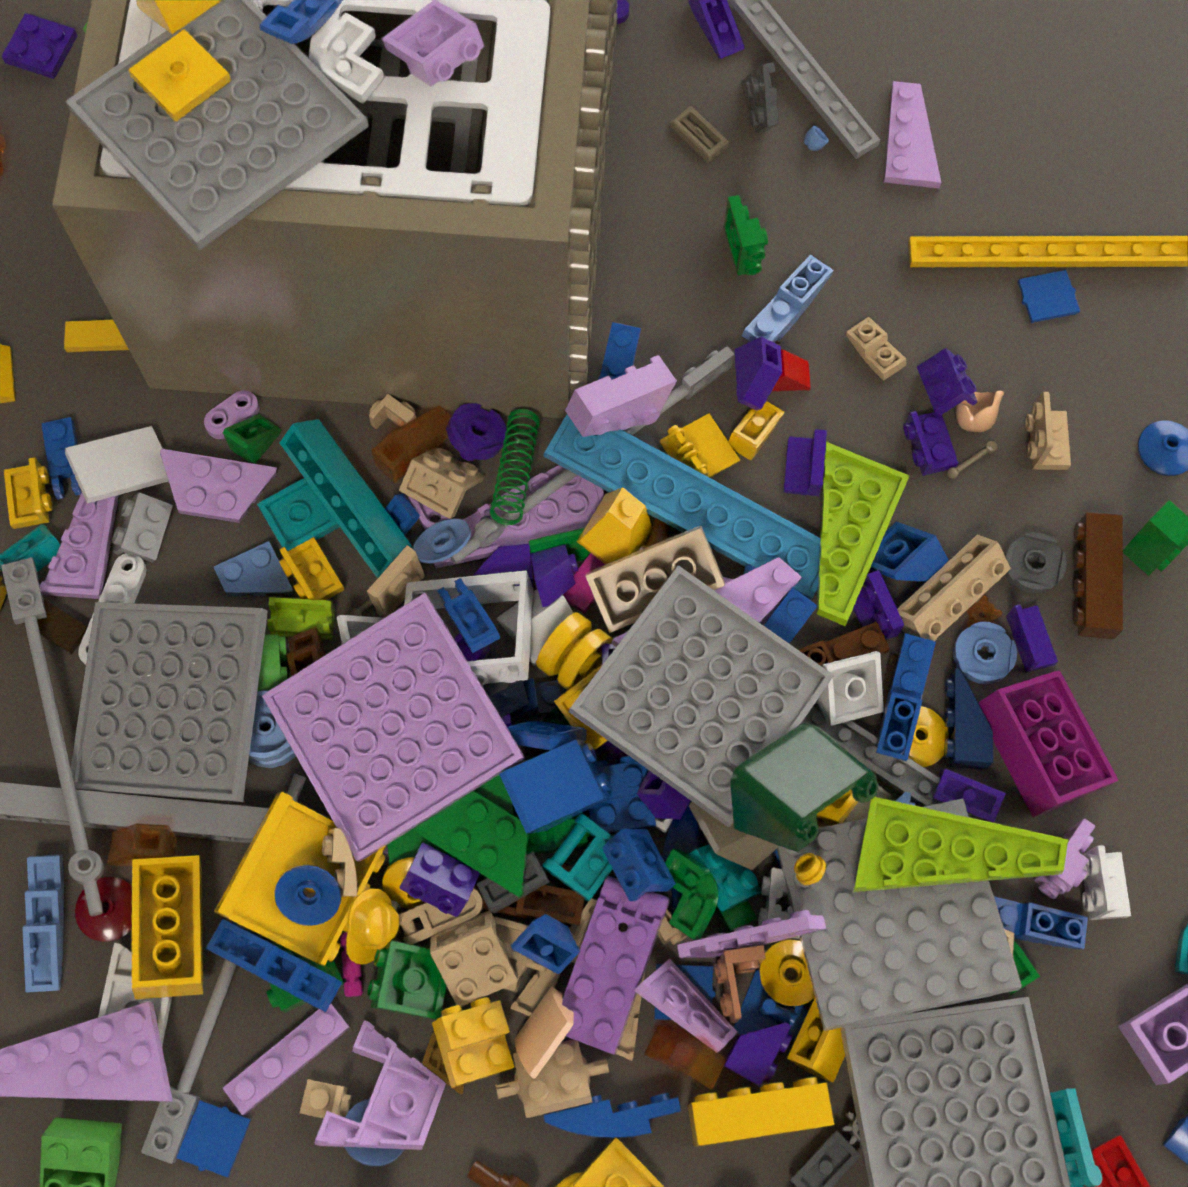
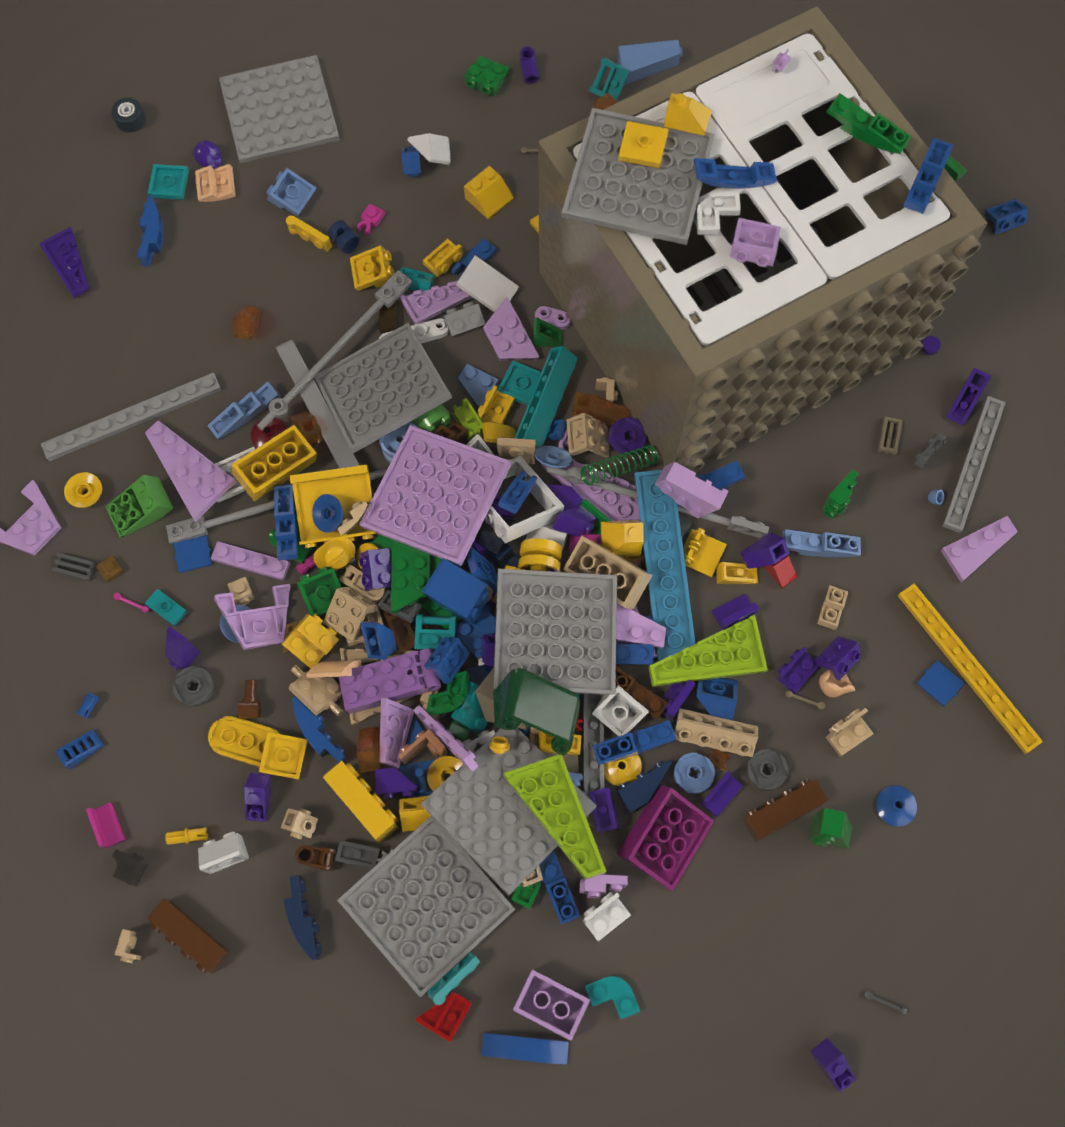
camera: 60 degrees right, 0 degrees up
(352, 590) = (492, 431): none -> yellow slope

